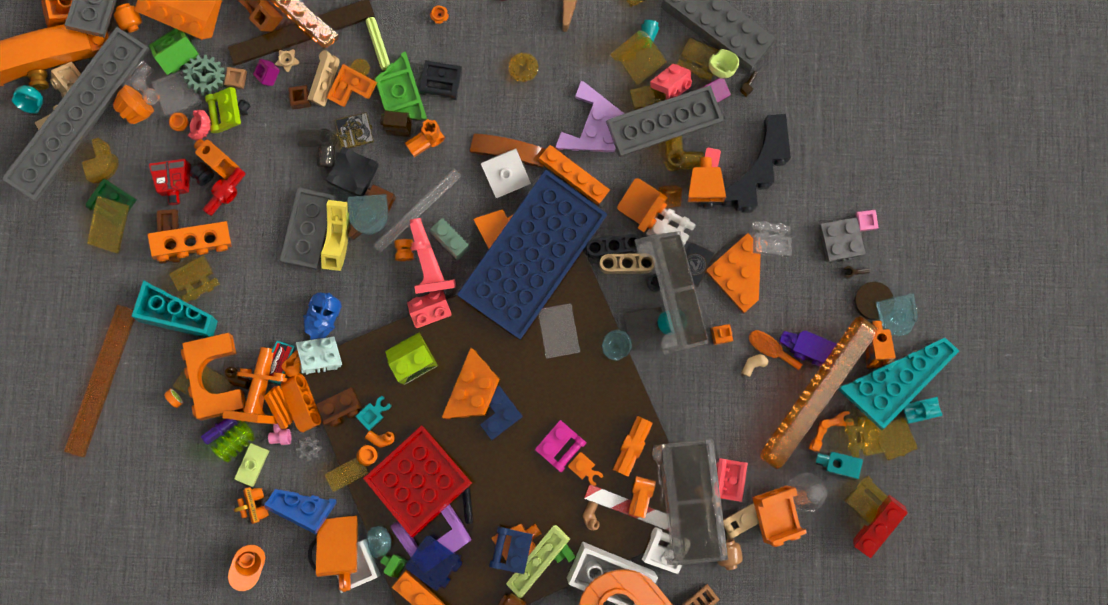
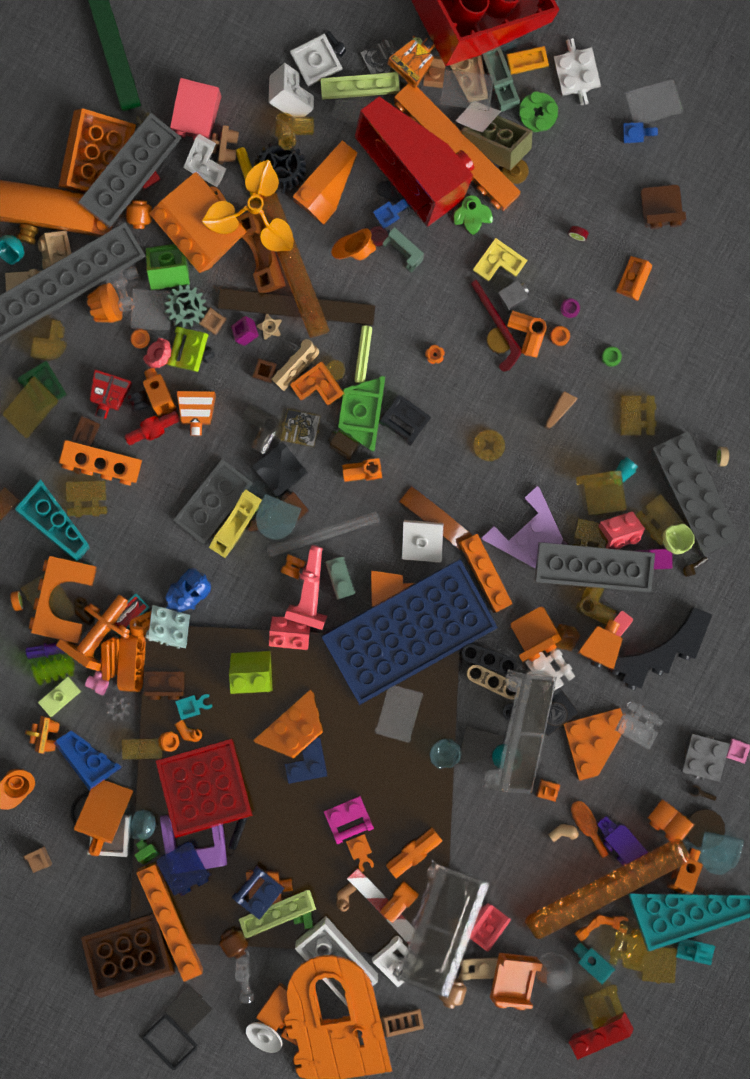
camera: 25 degrees right, 5 degrees up
(255, 156) = (196, 409): none -> torso
(841, 307) = (670, 821): none -> orange brick

